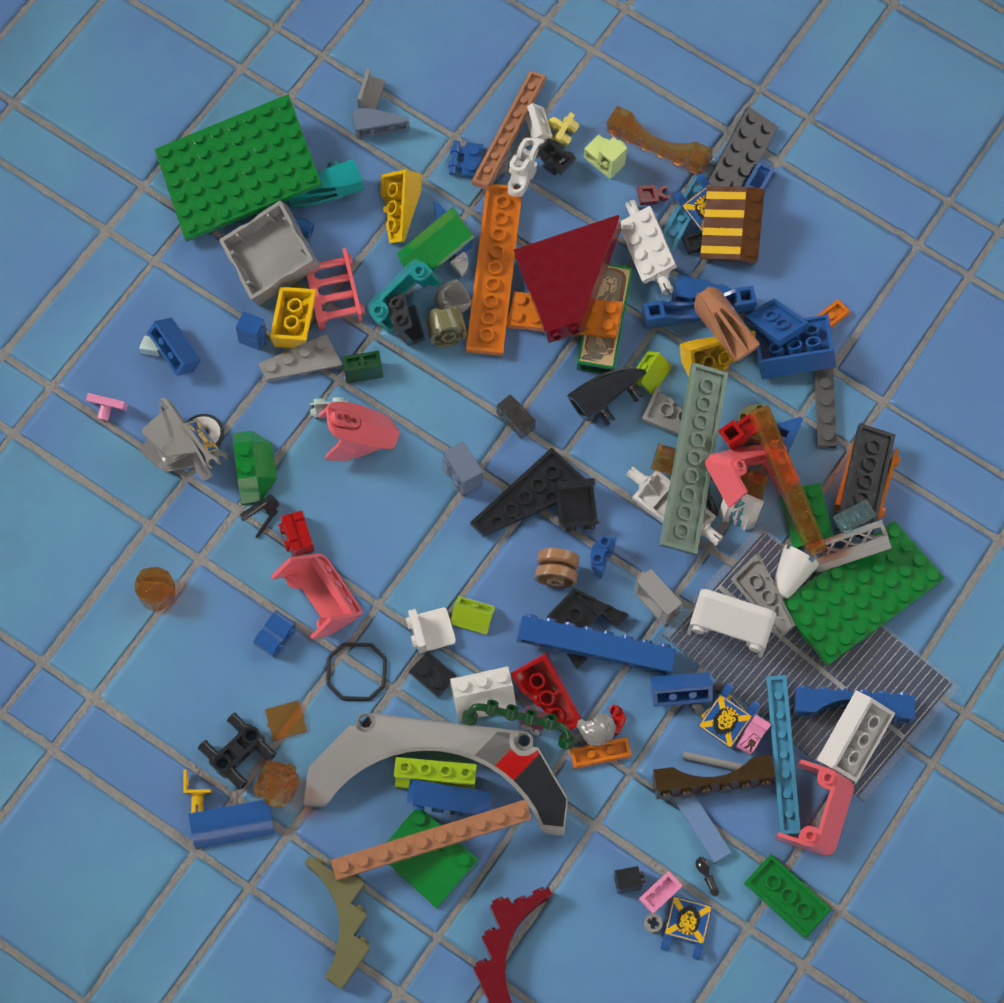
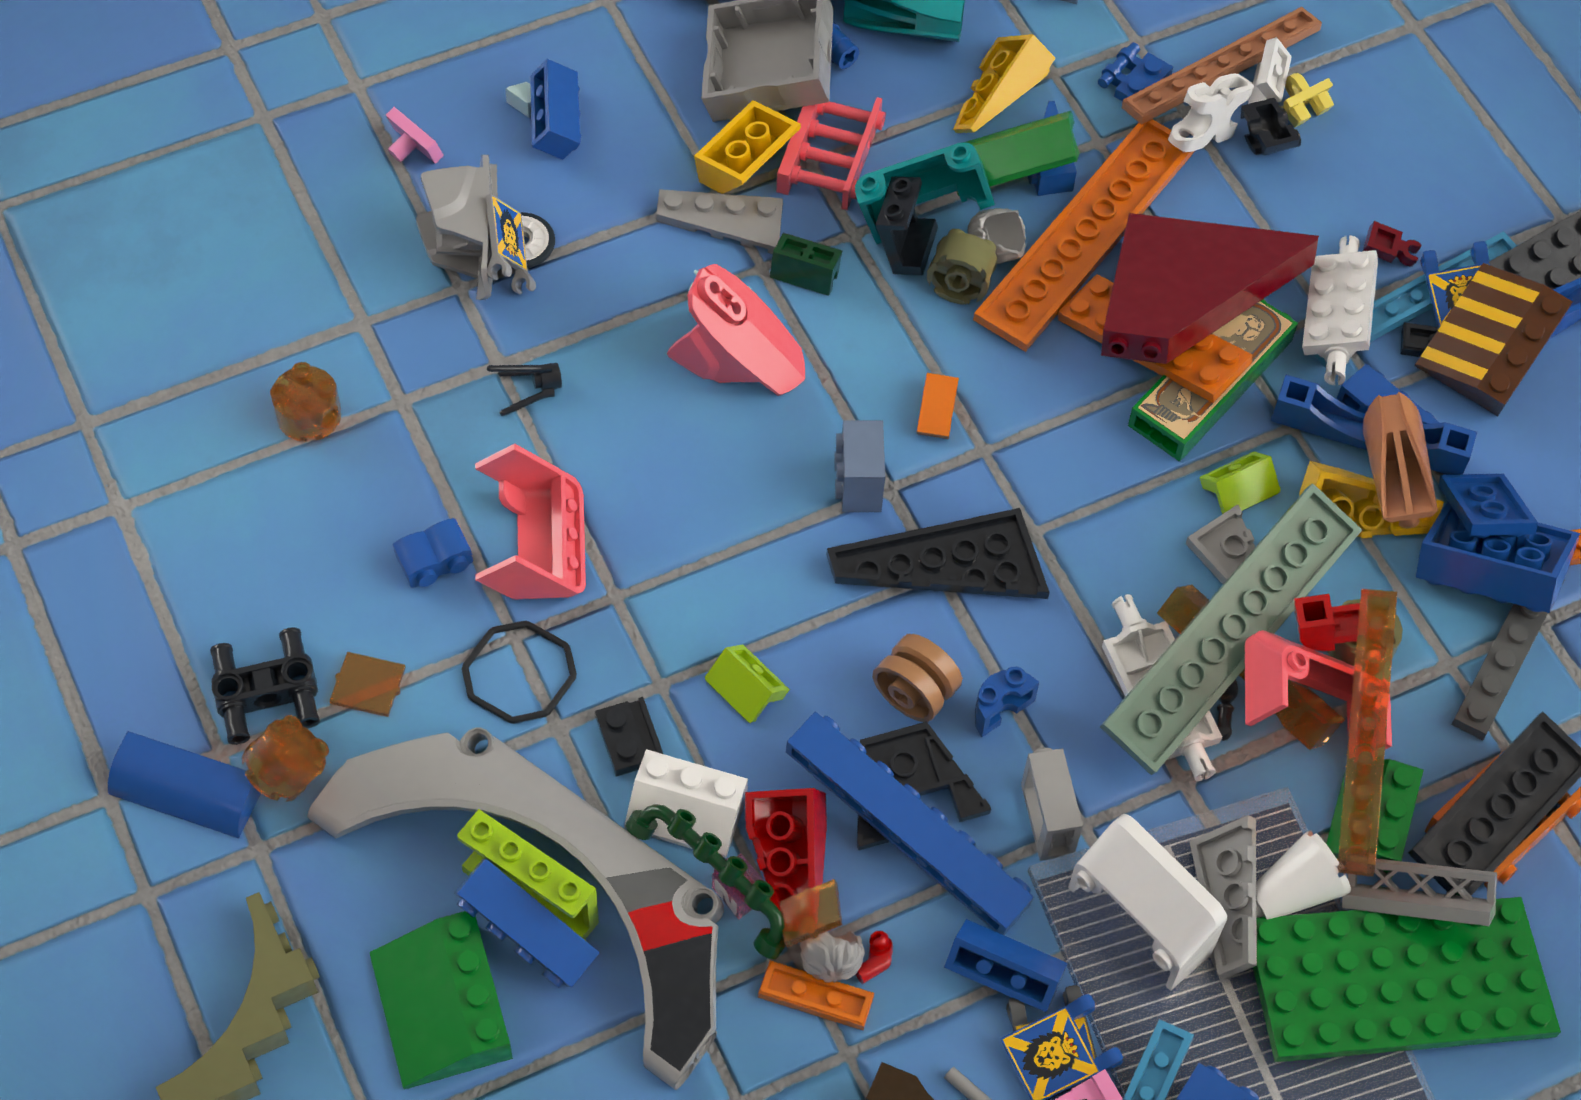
camera: 30 degrees right, 10 degrees down
(196, 795) = (163, 715): yellow bracket -> none
(251, 331) = (675, 138): blue brick -> none
(254, 466) = (558, 315): green wedge -> none
(296, 533) = (559, 432): red brick -> none
(430, 629) = (666, 668): white bracket -> none
(431, 840) = (457, 969): nougat plate -> none
(460, 264) = (1040, 203): white tile -> none
(477, 411) = (937, 405): none -> orange slope
(515, 416) = (991, 439): clear smoke brick -> none
(576, 504) = (1007, 604): black panel -> none
(579, 716) = (811, 913): none -> clear orange piece
(600, 391) = (1133, 463): black piece -> none
(606, 155) = (1350, 160): yellowish green brick -> none
(689, 155) = (1476, 213): clear orange arch -> none
(743, 513) = (1270, 749): white slope -> none
(789, 431) = (1416, 674): blue slope -> none
(854, 516) = (1452, 845): clear light blue plate -> none

